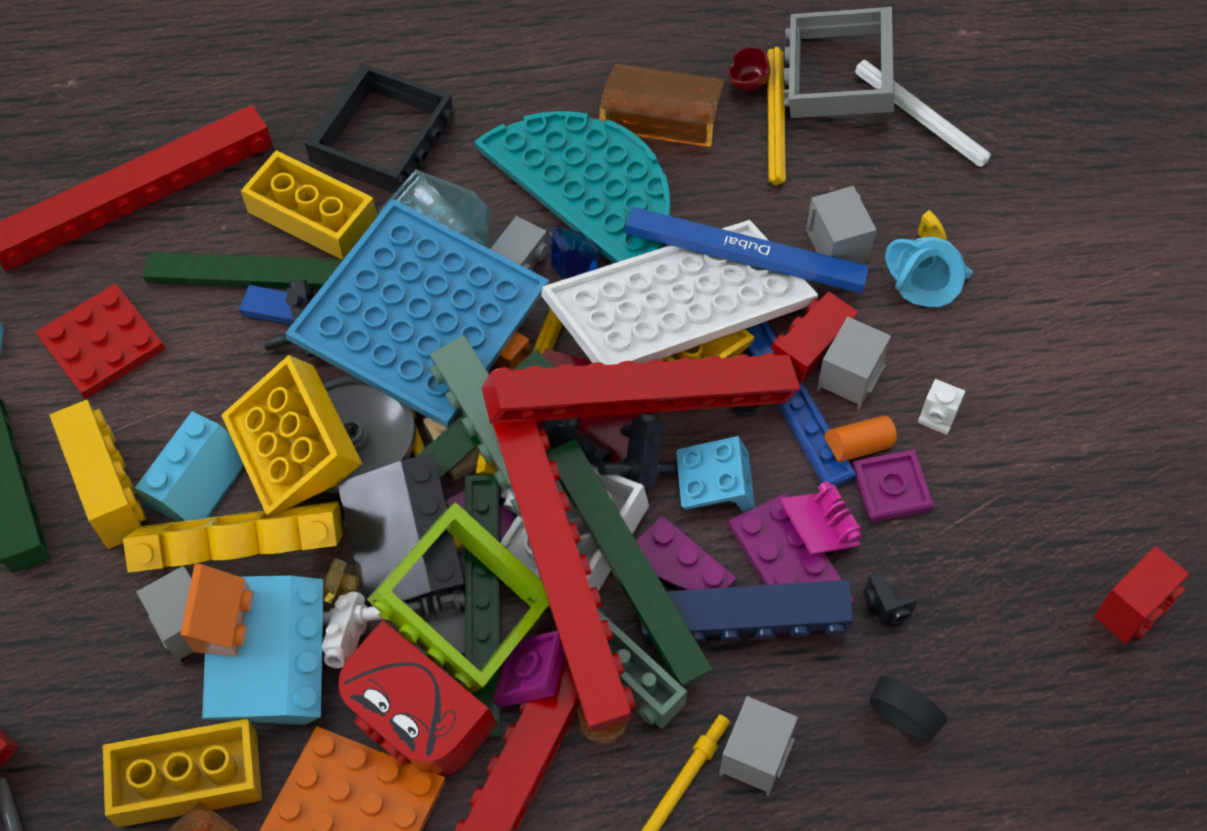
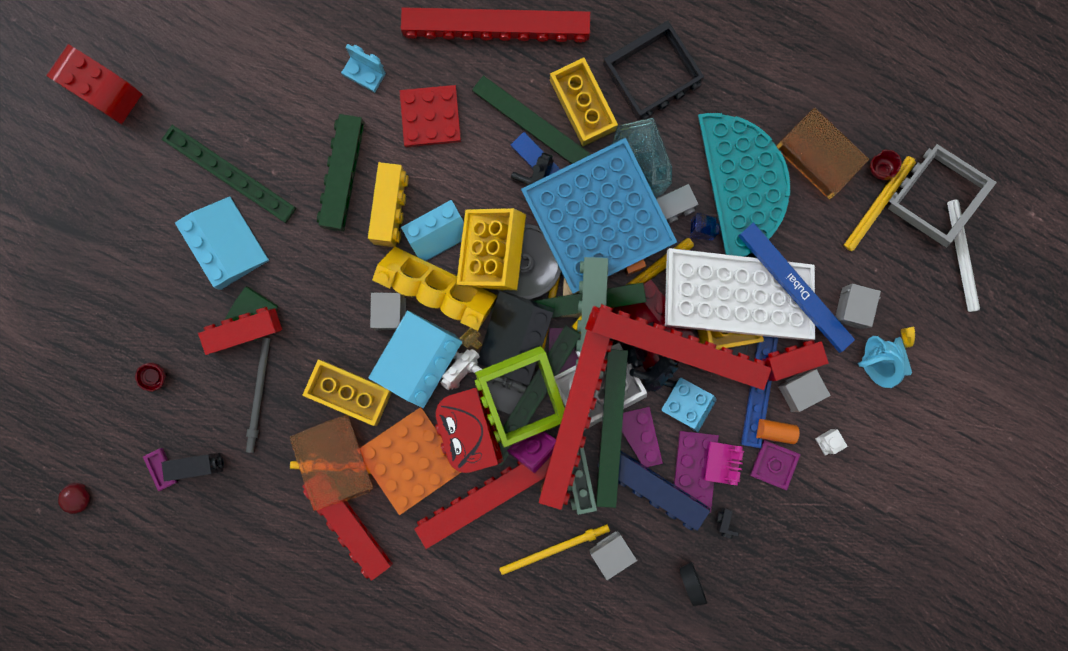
camera: 35 degrees right, 25 degrees up
(216, 612) = (400, 337): orange slope -> none
(1142, 596) = (848, 607): red brick -> none

